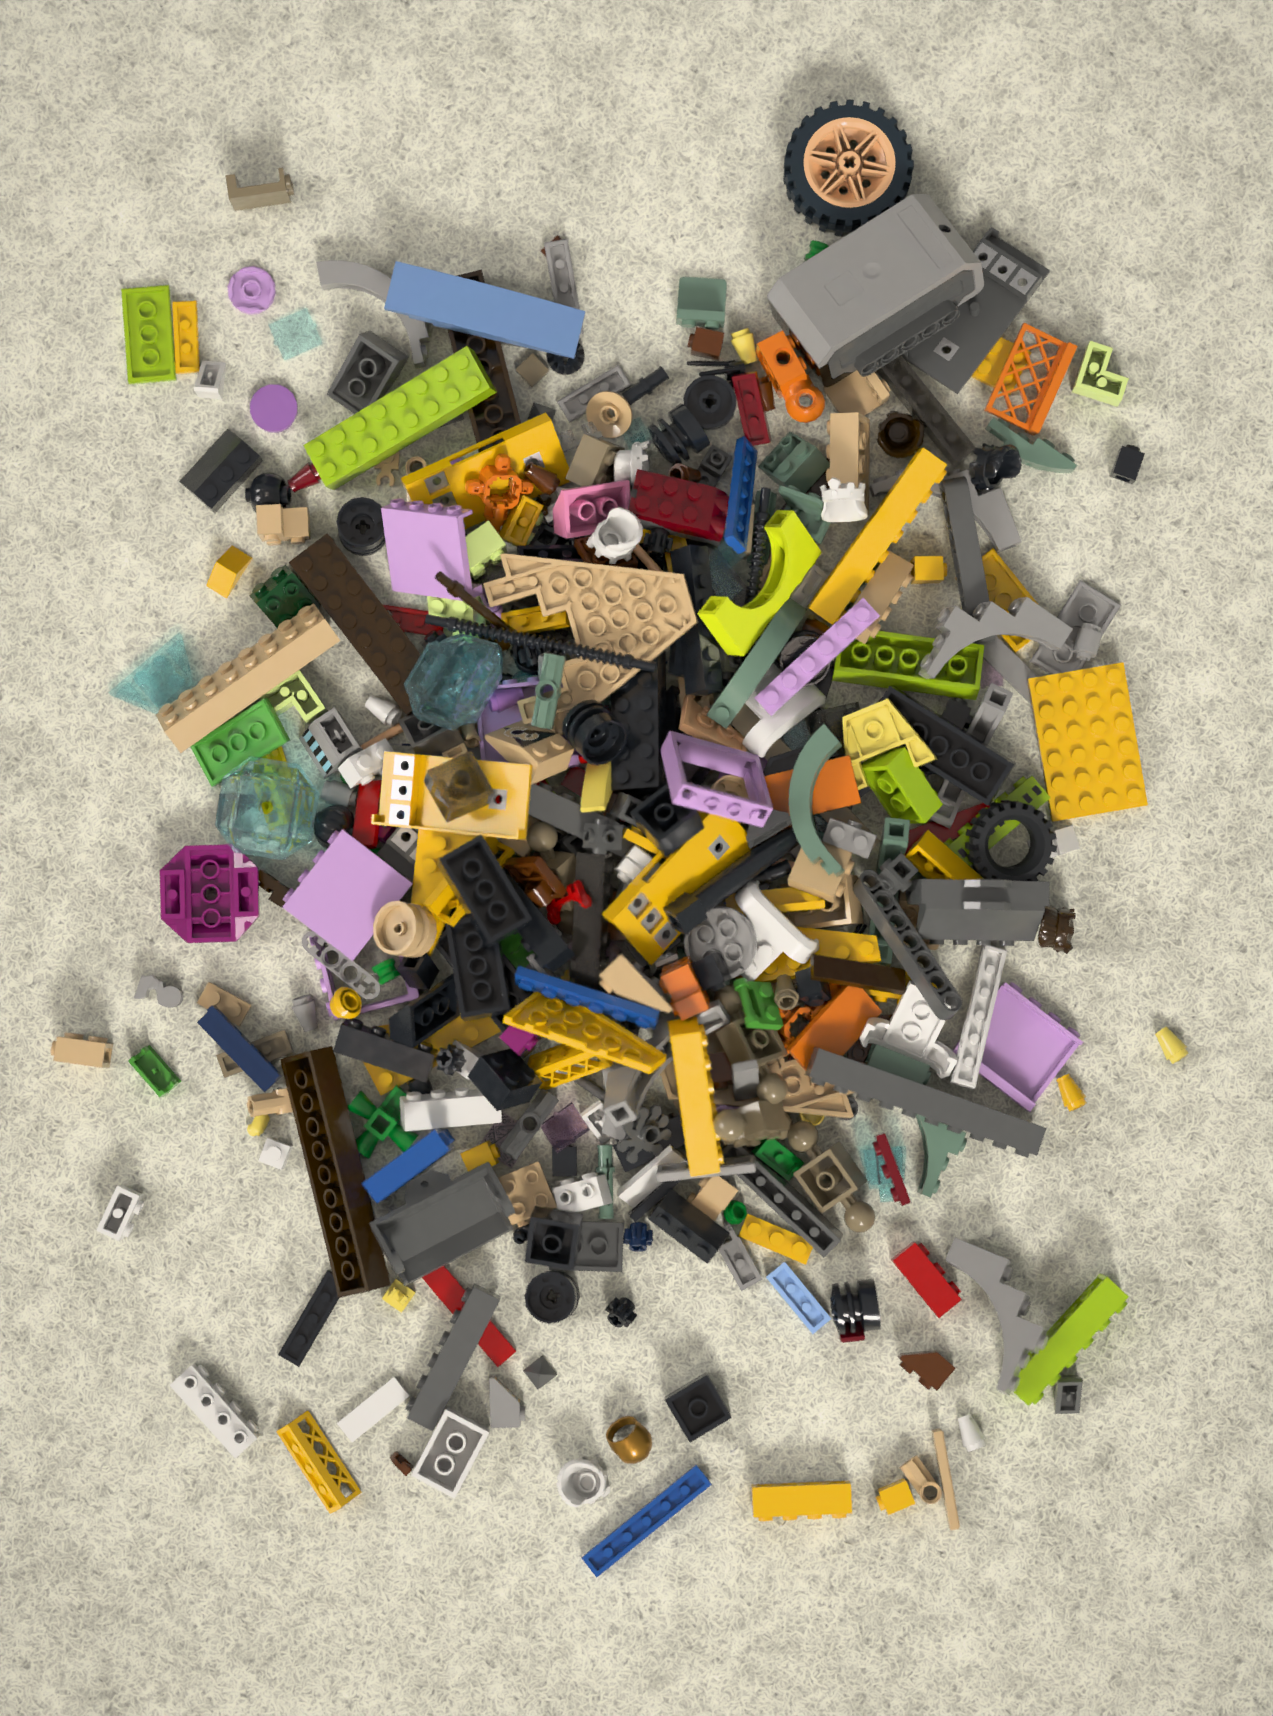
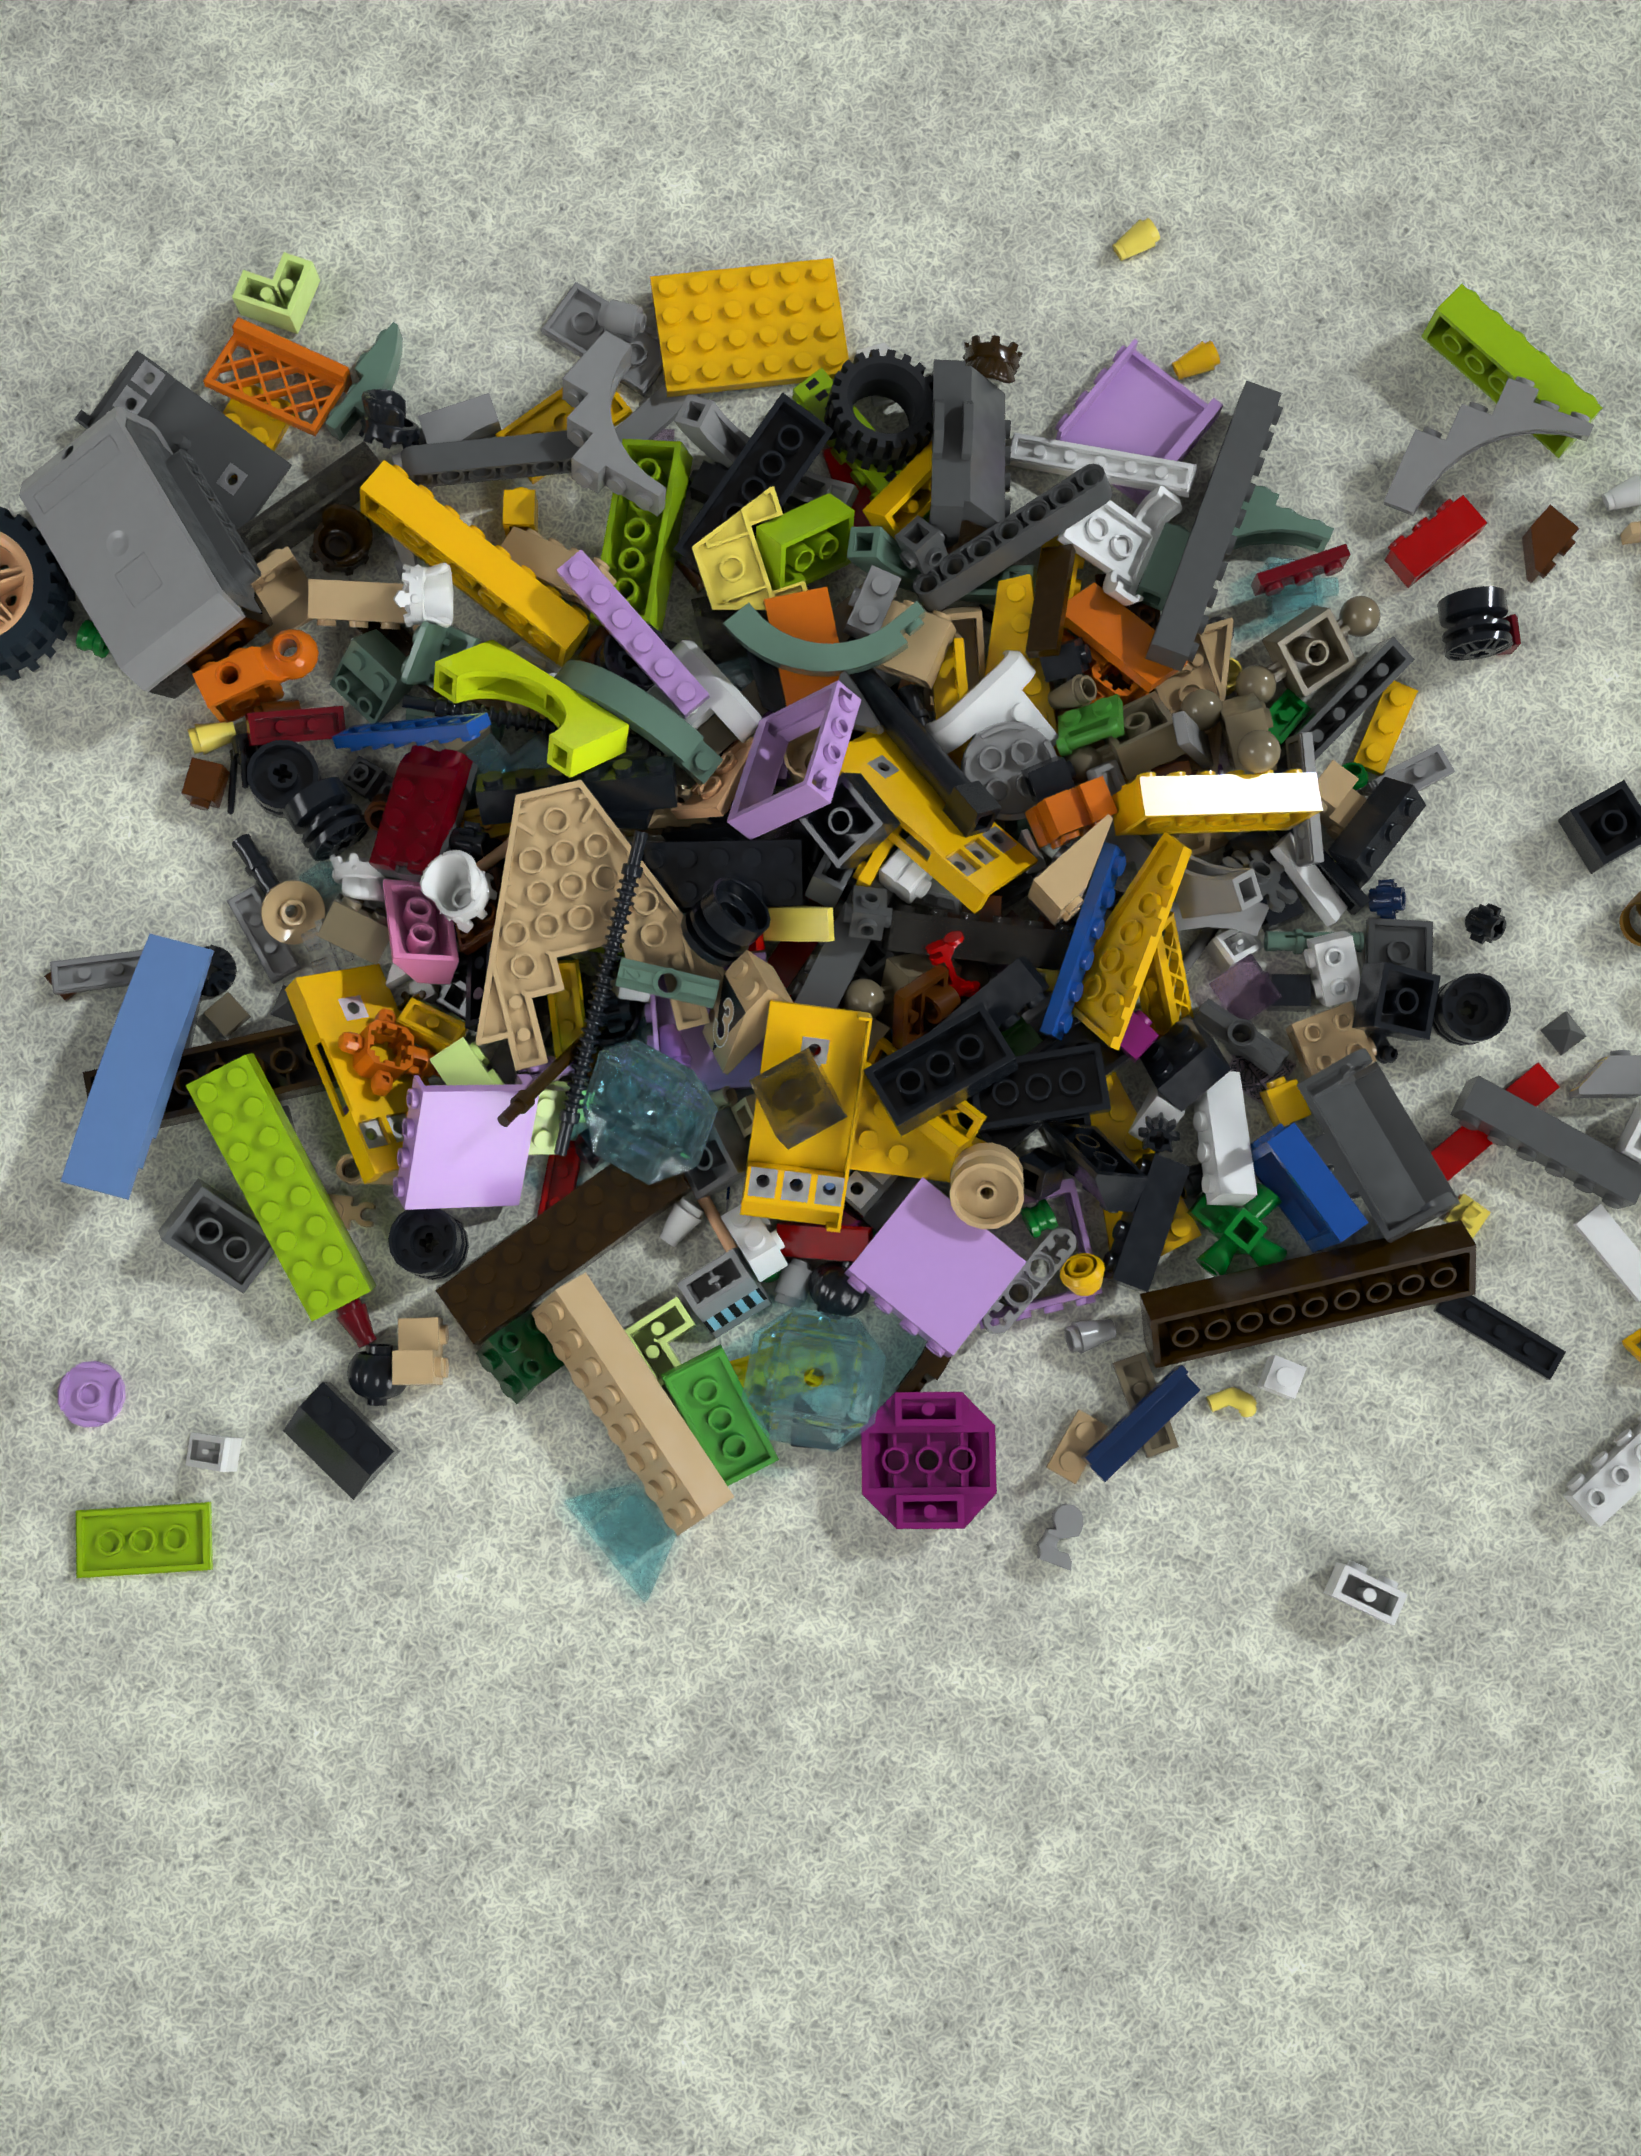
camera: 90 degrees left, 5 degrees down
(76, 1050) = (1145, 1644): tan brick -> none
(154, 1071) = (1169, 1543): bright green hinge -> none
(186, 337) = (150, 1487): yellow tile -> none
(228, 571) = (482, 1432): yellow slope -> none
(269, 1103) = (1213, 1379): tan piece -> none
(273, 408) = (258, 1366): medium lavender tile -> none
(295, 334) = (157, 1335): clear light blue piece -> none
(363, 278) = (91, 1224): light grey arch -> none
(542, 478) = (376, 995): reddish brown cone -> none
(701, 302) = (150, 790): sand green bracket -> none
(798, 1297) = (1460, 700): light blue plate -> none
(1068, 1394) = (1579, 368): dark grey slope -> none
(1127, 464) = (395, 266): black brick -> none

